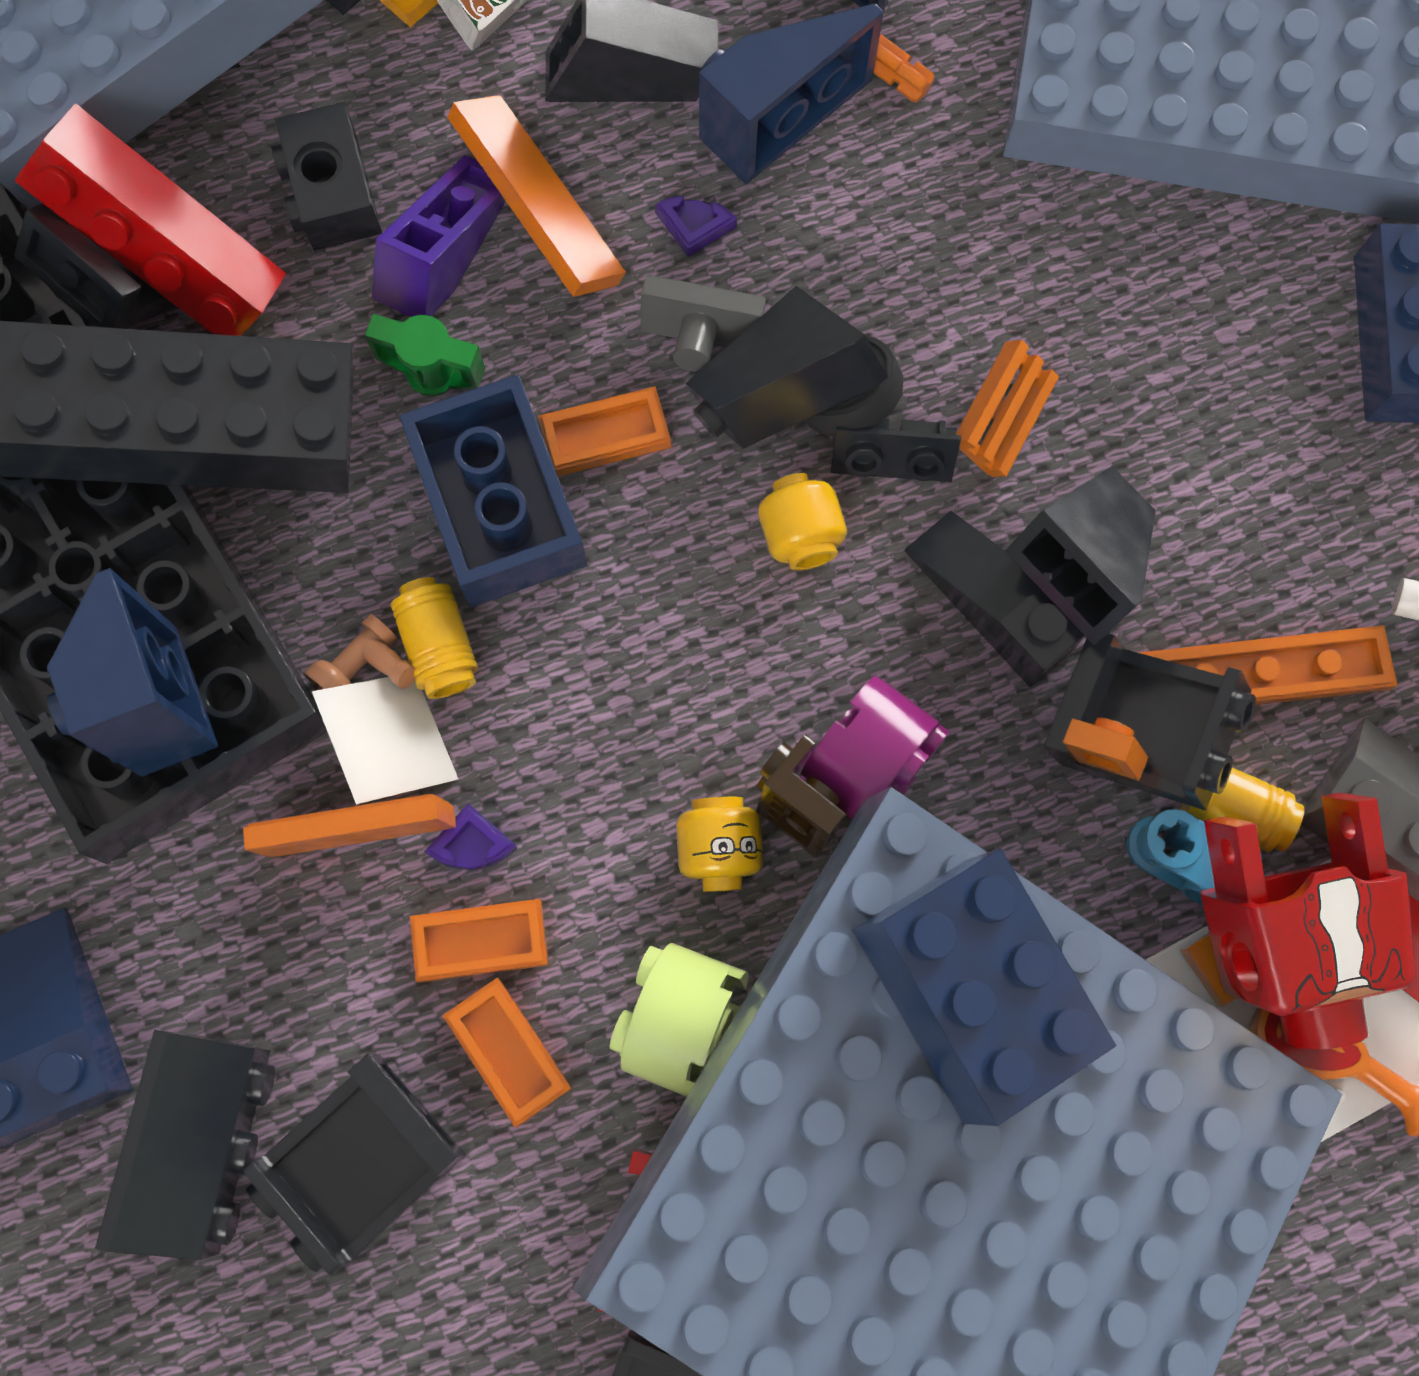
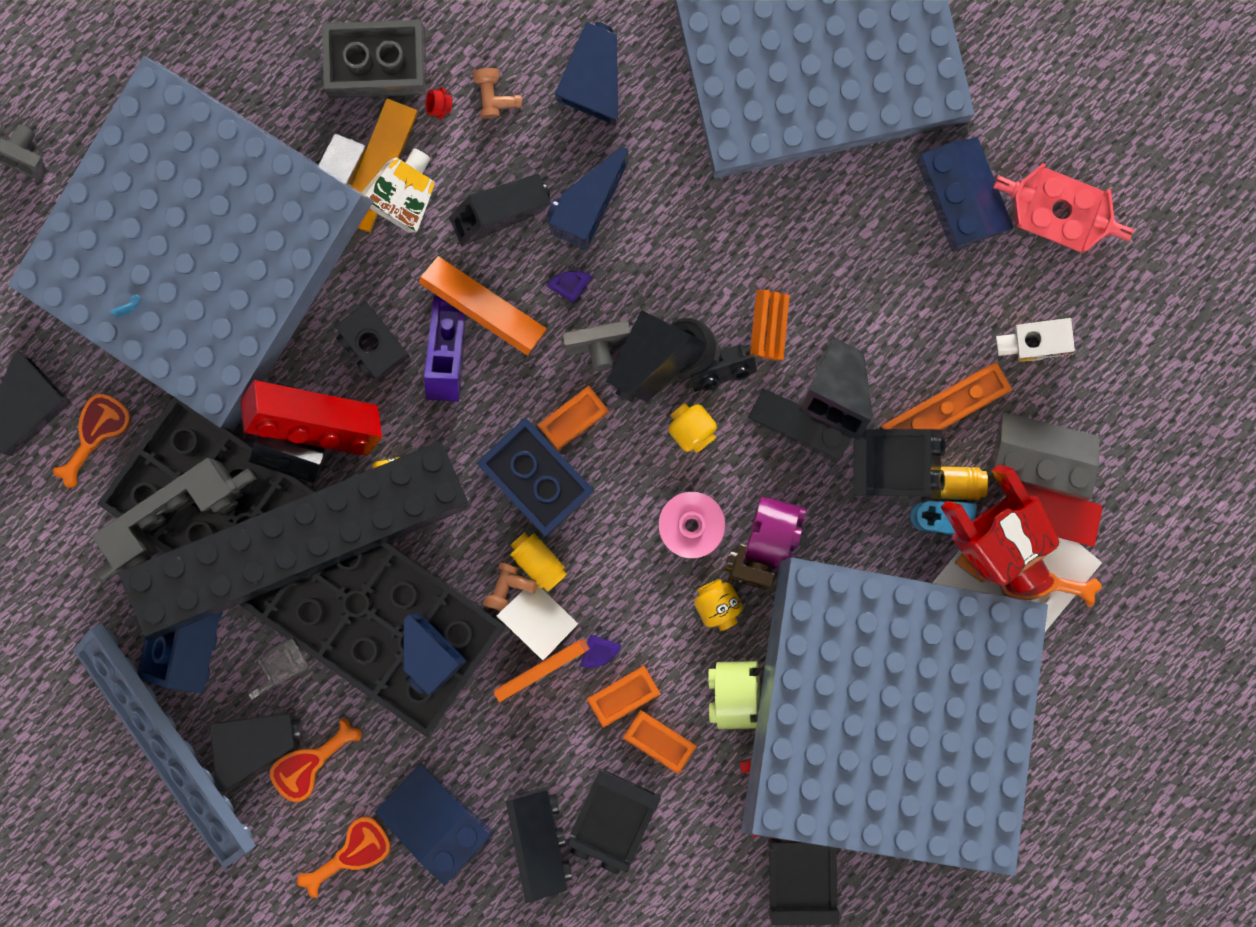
camera: 20 degrees left, 10 degrees up
(424, 349) = (469, 419): green piece -> none
(737, 654) = (697, 507): none -> bright pink dish
(894, 66) = (636, 151): orange axle -> none
(984, 989) = (866, 633): dark blue brick -> none
(1106, 747) = (883, 485): orange plate -> none

